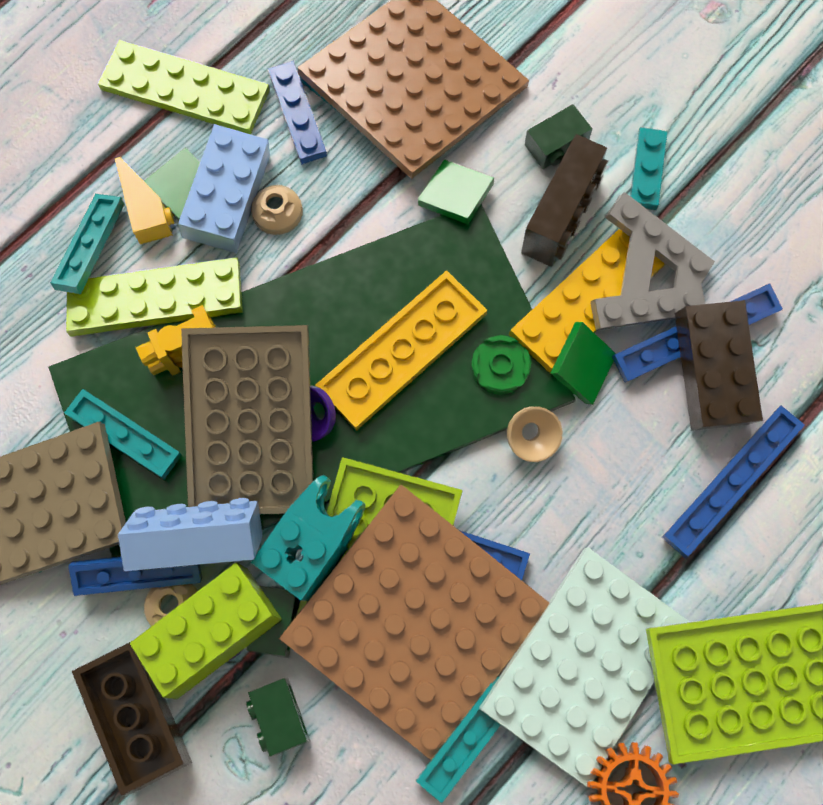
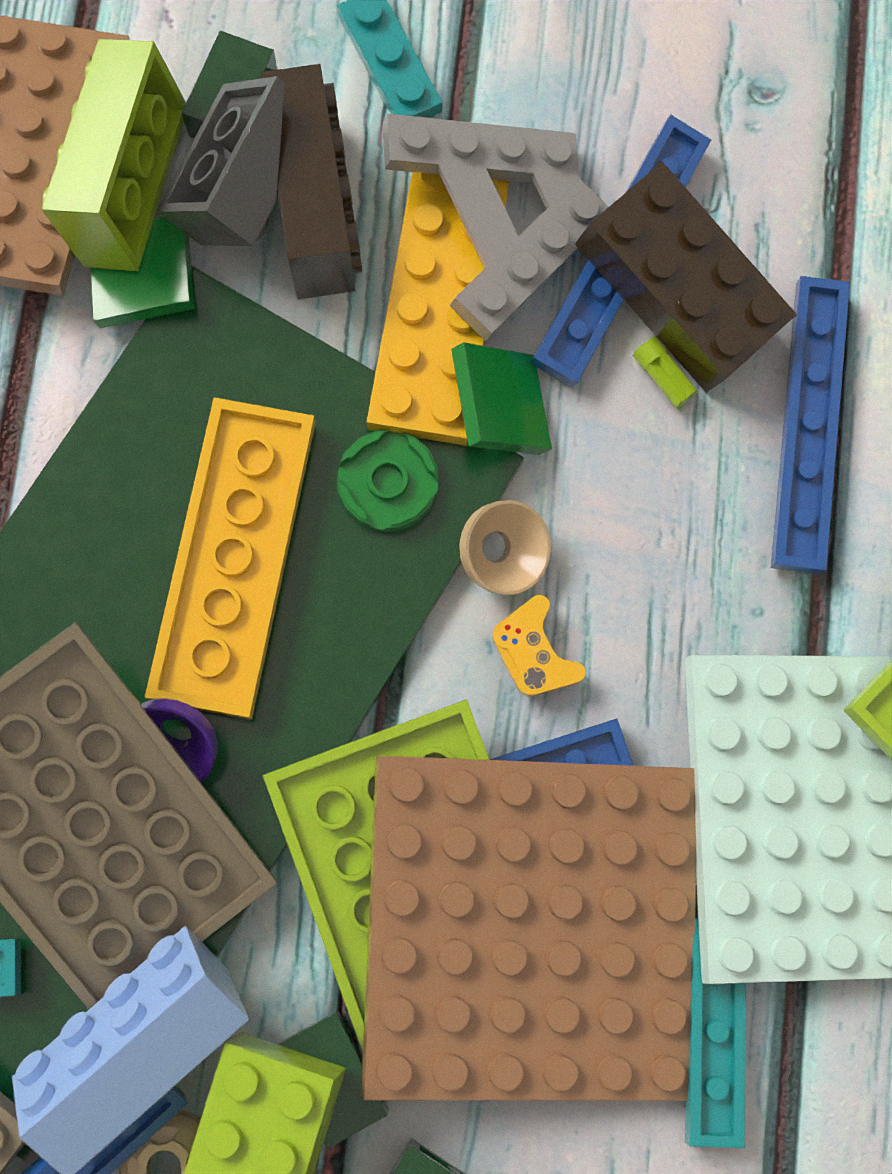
camera: 40 degrees left, 5 degrees up
(314, 531) = (307, 913): teal brick -> none
(481, 130) = (116, 155): none -> lime brick
(509, 493) = (529, 654): none -> yellow piece
(529, 170) = (231, 167): none -> dark grey slope
(676, 406) = (664, 371): none -> lime piece

